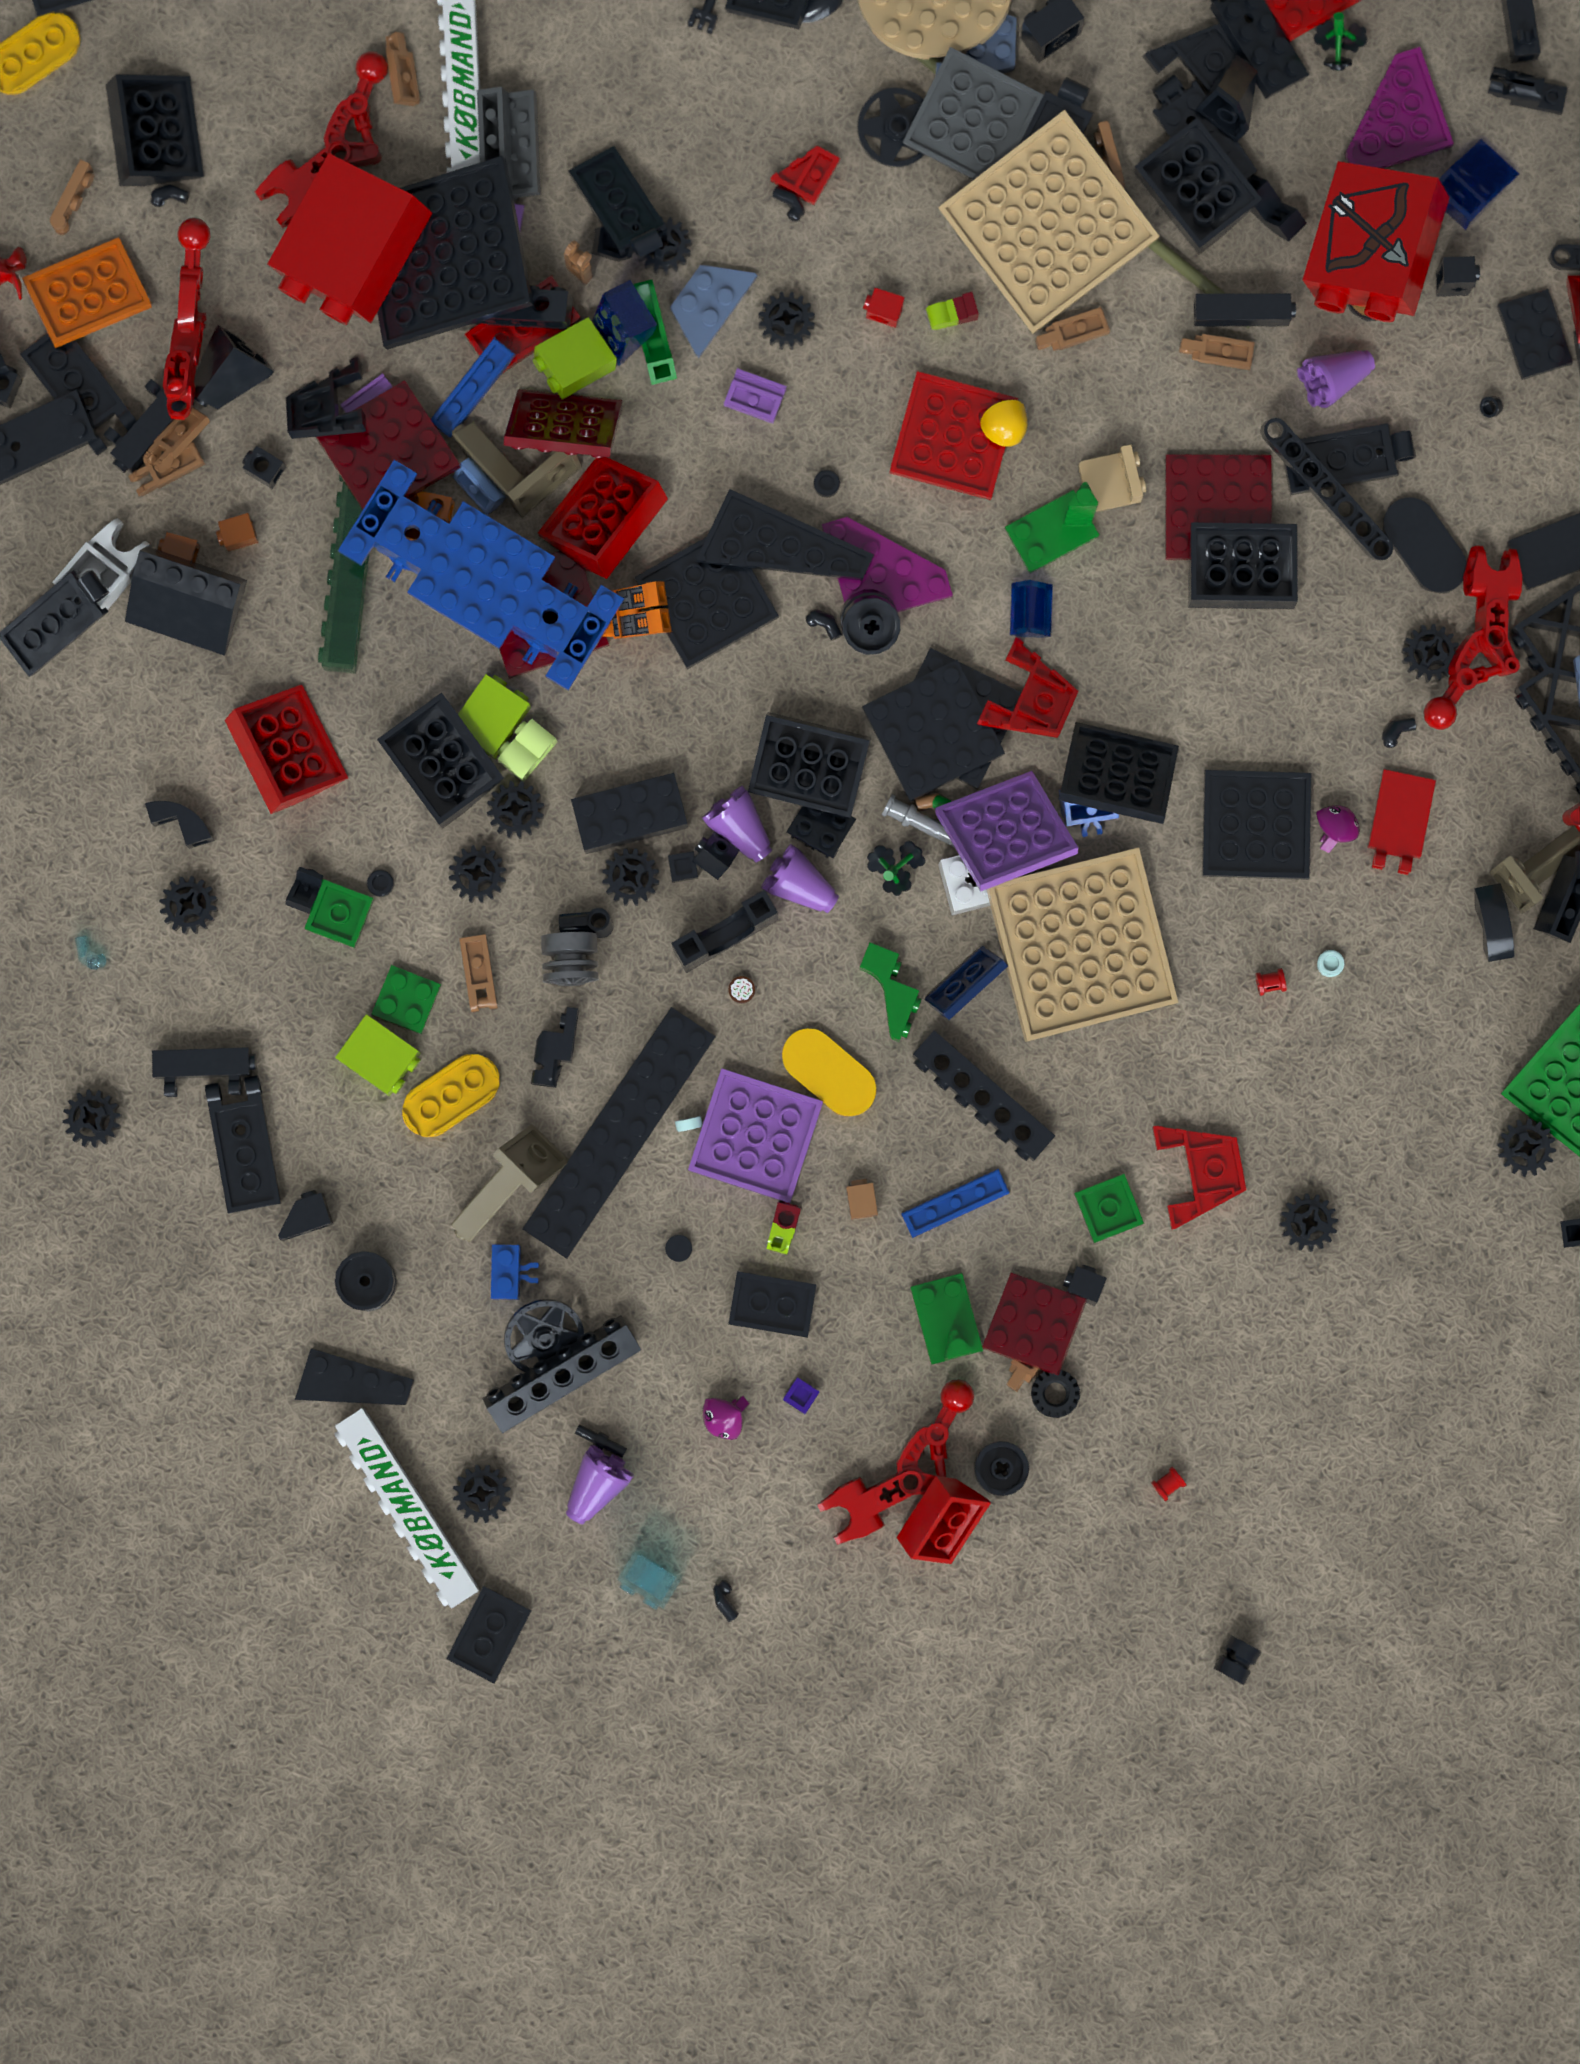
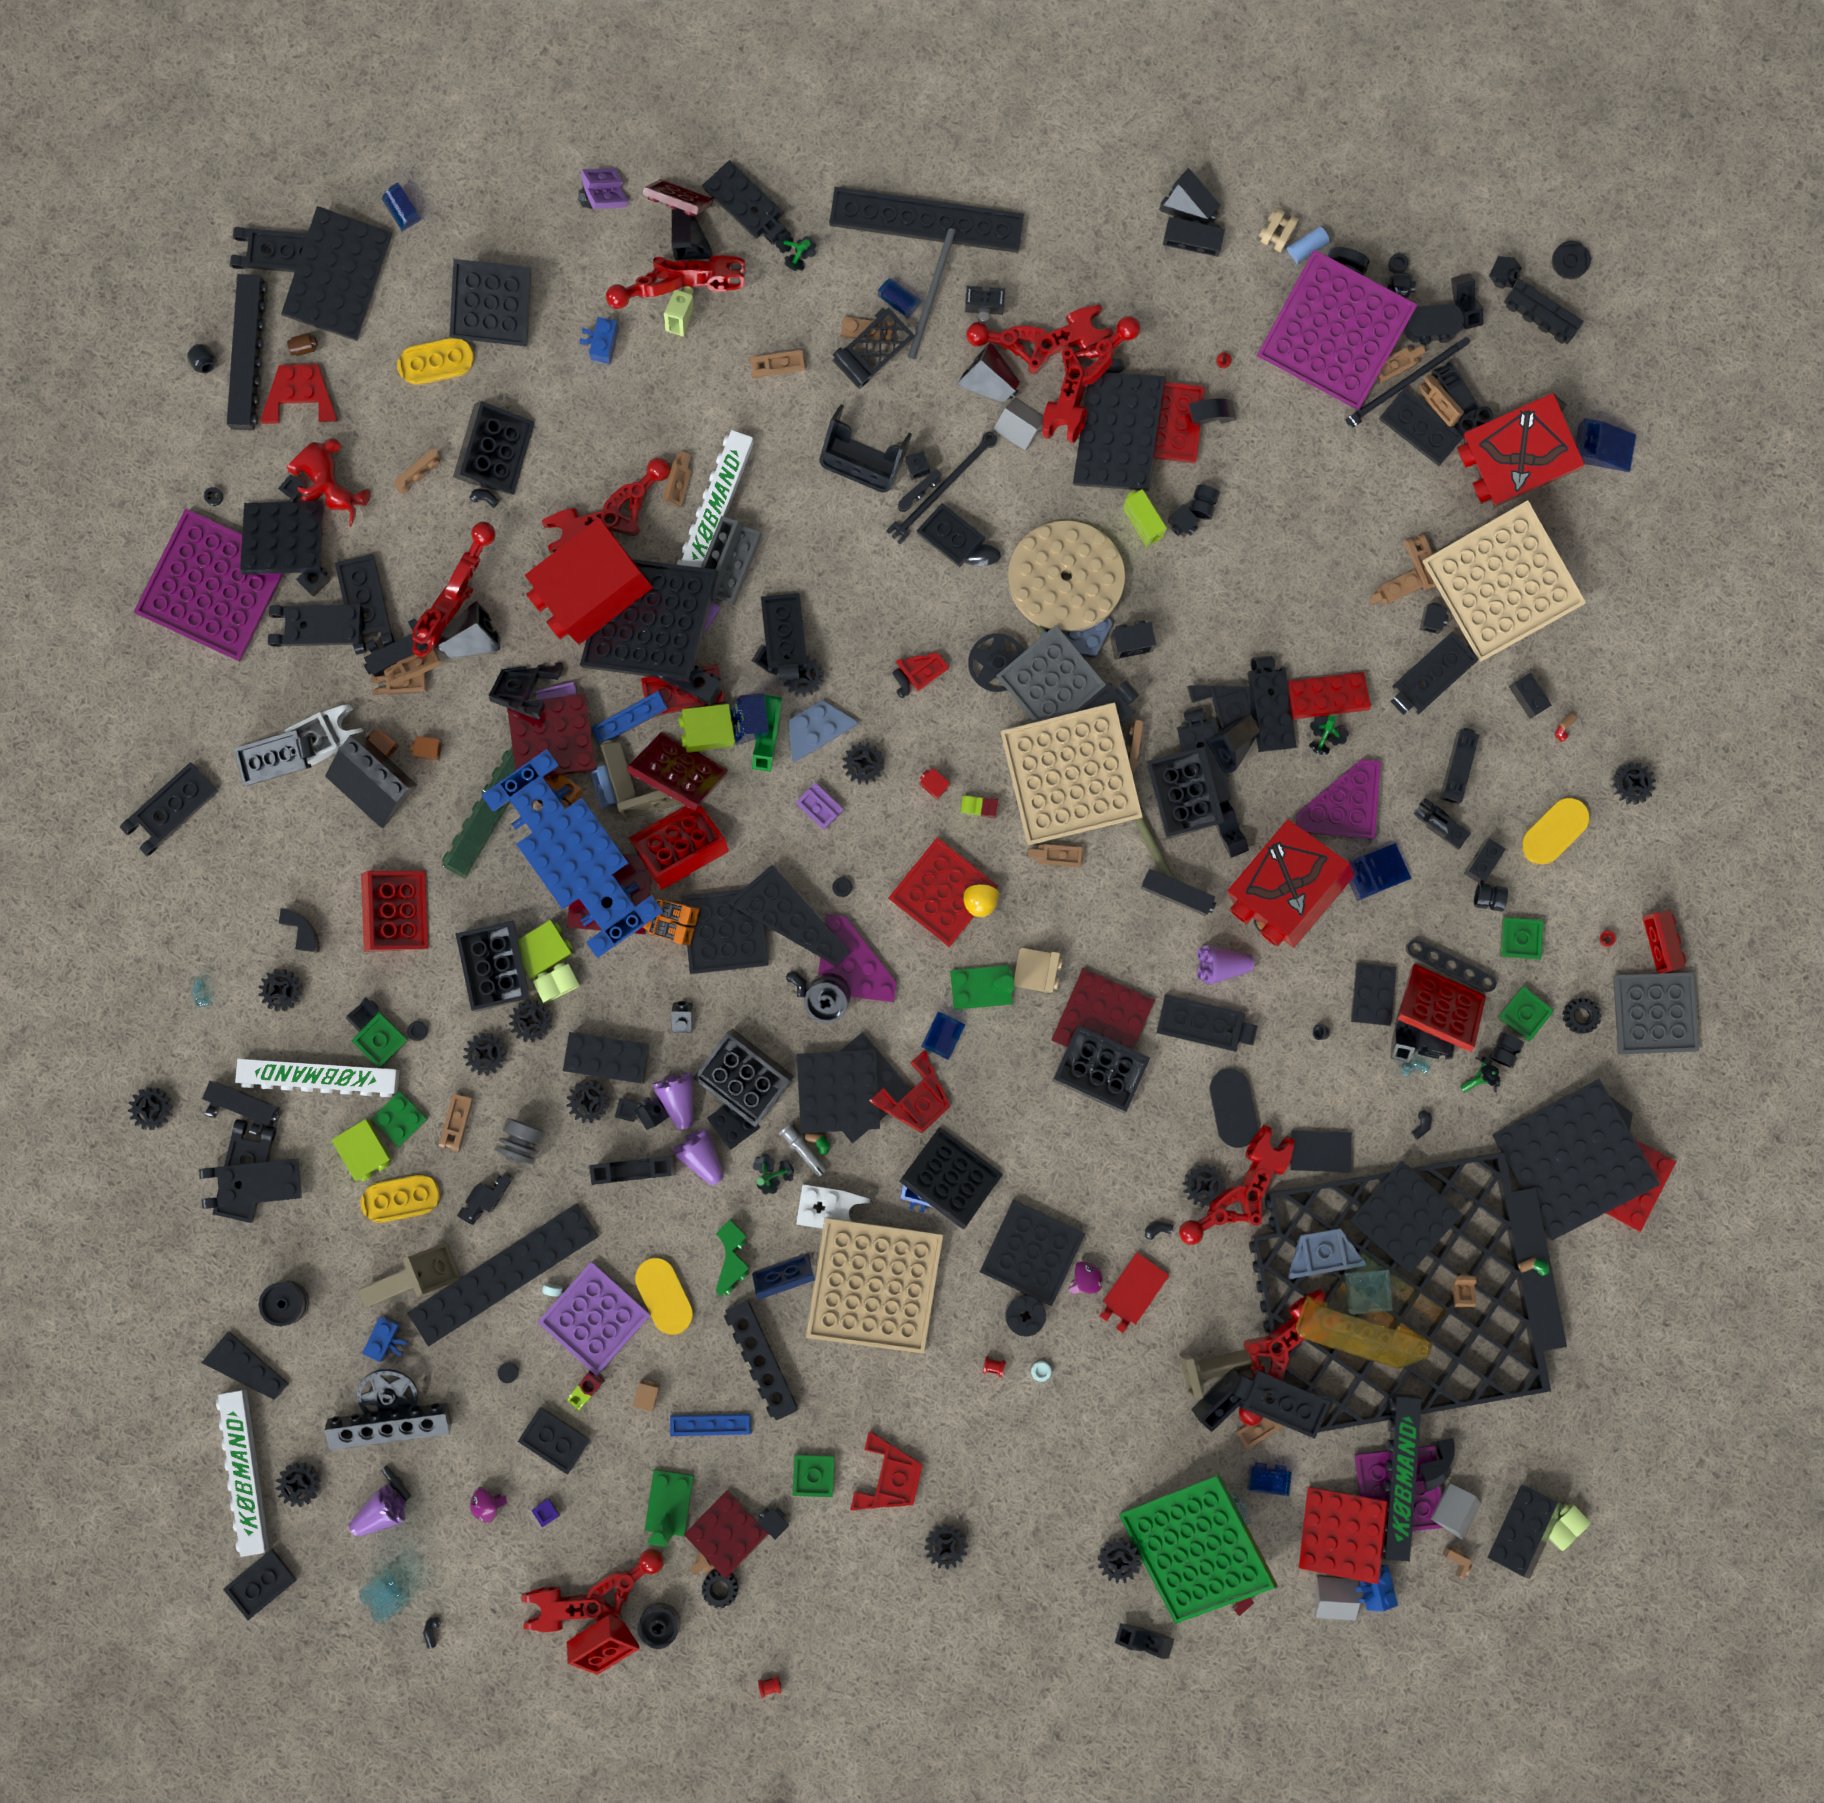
camera: 20 degrees right, 0 degrees up
(86, 292) = (397, 540): orange plate -> none
(270, 1145) = (260, 1183): none -> black hinge
(271, 474) = (468, 718): black brick -> none
(282, 990) = (317, 1076): none -> white brick
(306, 1216) = (265, 1239): black slope -> none
(578, 262) = (738, 663): medium nougat hinge -> none
(585, 922) = (541, 1120): black piece -> none
(700, 725) = (682, 1017): none -> bracket
(741, 989) = (629, 1212): tile -> none
(1006, 831) = (856, 1184): medium lavender plate -> none
(1219, 351) = (1151, 912): medium nougat hinge -> none
(1292, 891) = (1031, 1325): none -> black brick
(1314, 485) = (1187, 1049): black beam -> none
(1456, 276) = (1336, 932): black brick -> none
(1495, 921) = (1166, 1393): black brick -> none

